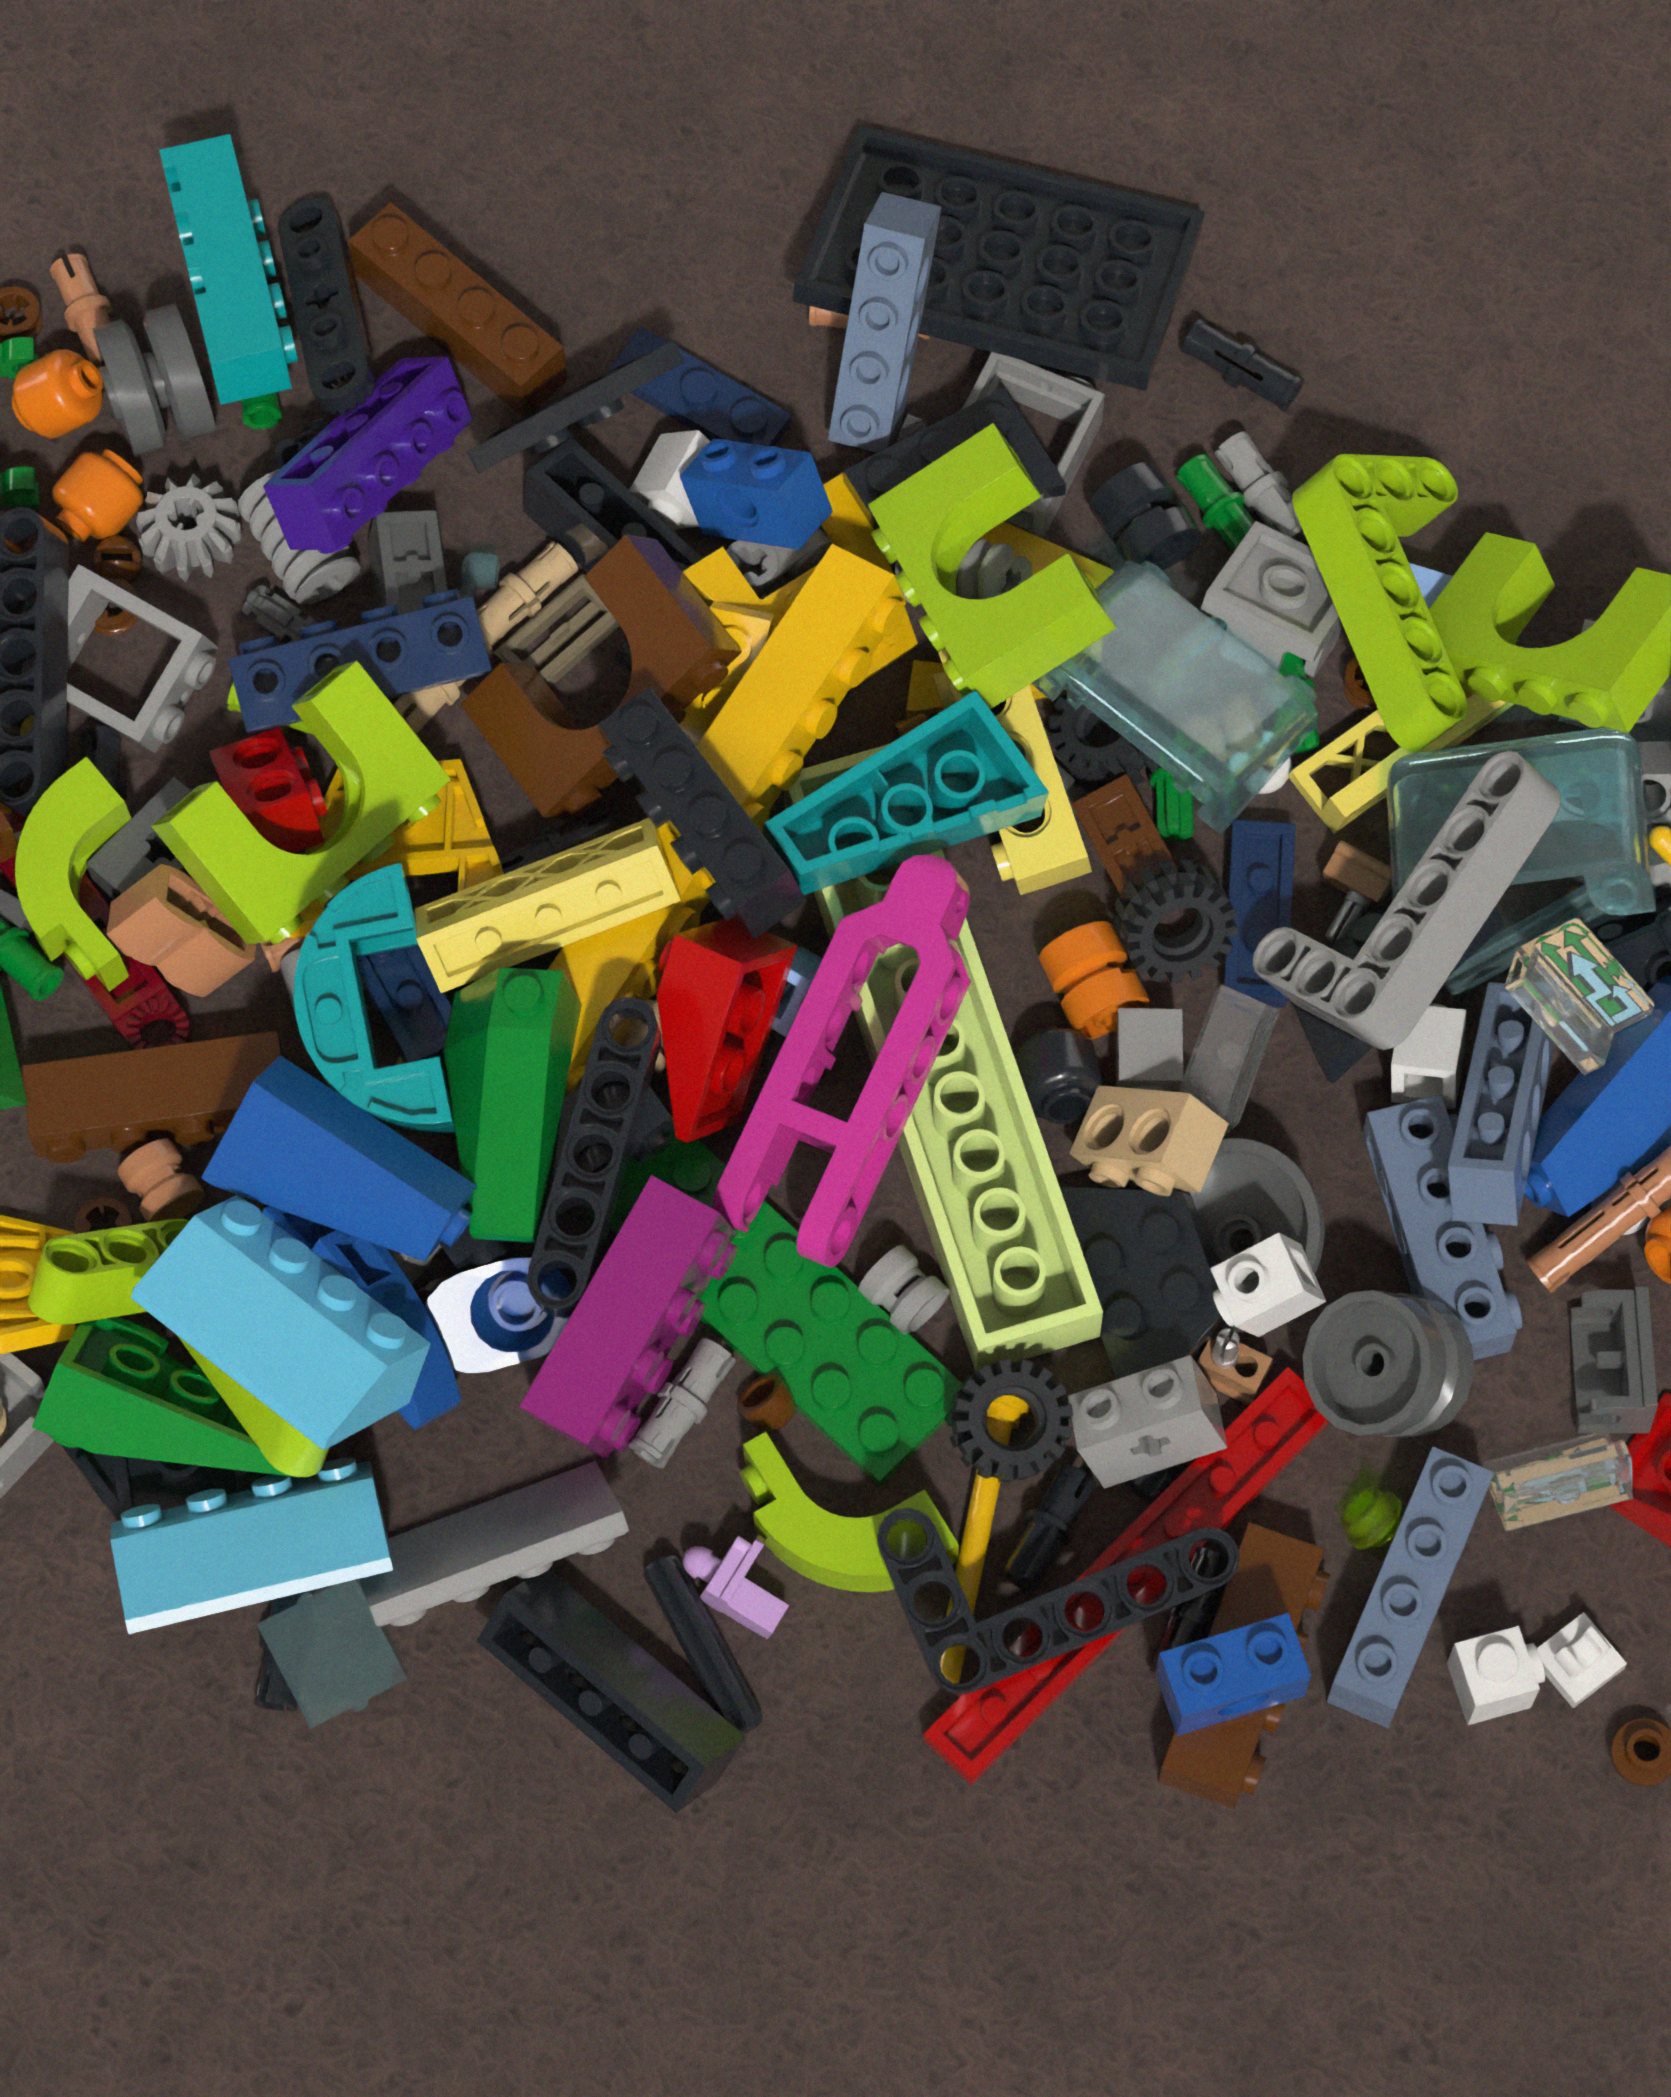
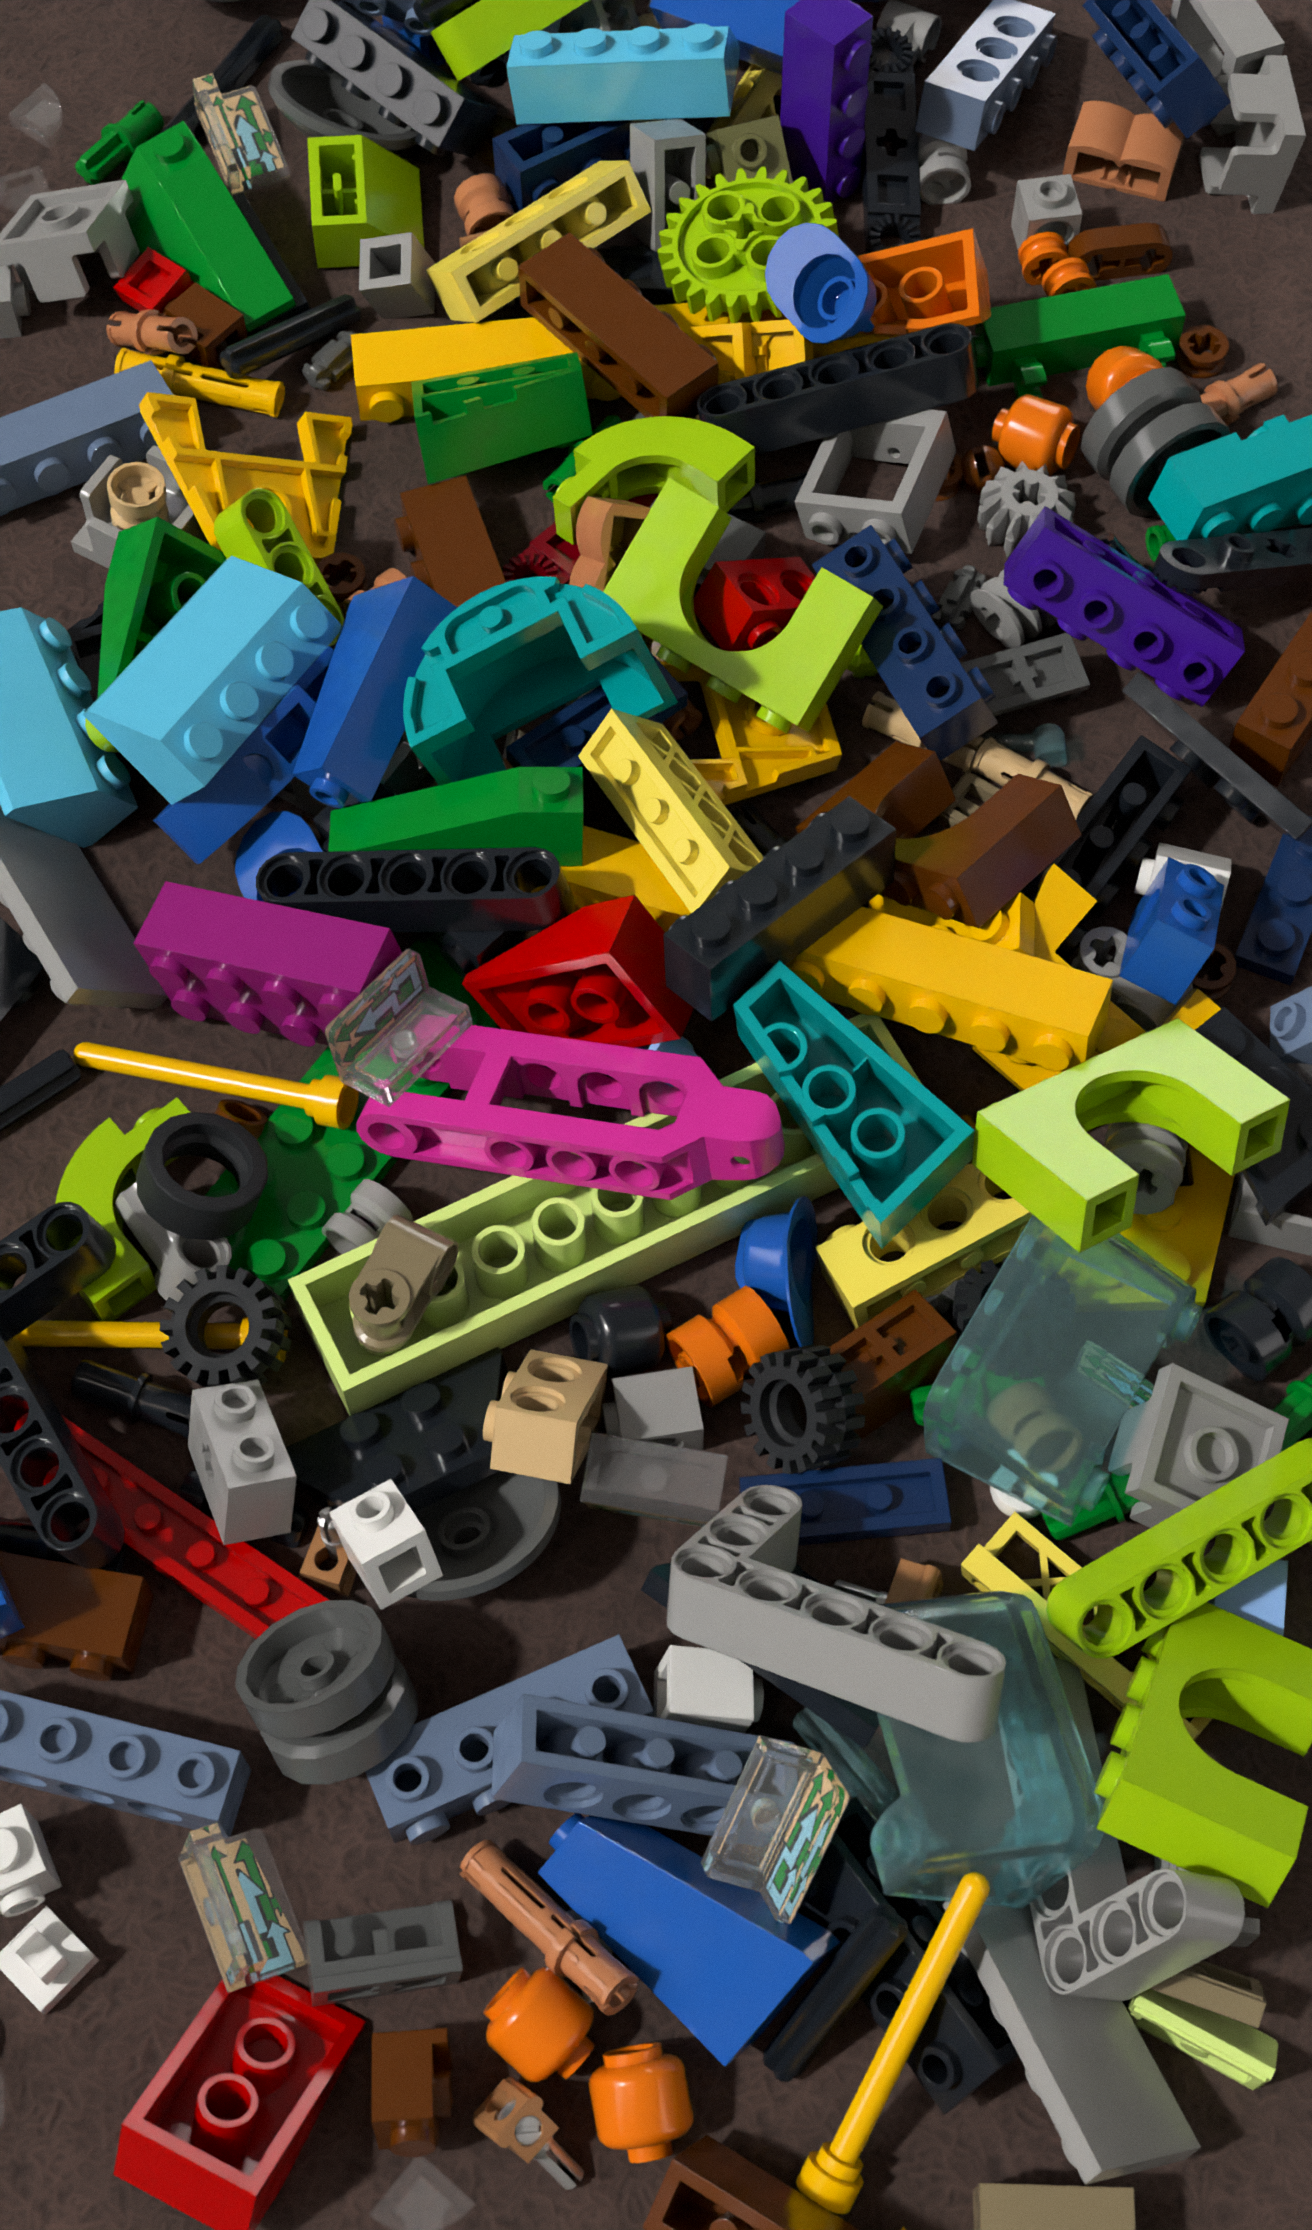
camera: 80 degrees right, 5 degrees down
(682, 1403) = (226, 1049): light grey pin -> none
(730, 1590) = (45, 1124): lavender piece -> none
(753, 1197) = (394, 1030): none -> clear panel
(771, 1304) = (324, 1099): none -> yellow piece
(836, 1383) = (217, 1140): none -> black tyre
(913, 1460) = (171, 1253): none -> light grey piece
(1001, 1231) = (402, 1274): none -> dark tan piece
(1020, 925) = (778, 1264): none -> blue piece
(1371, 1518) = (177, 1710): clear neon green plate -> none

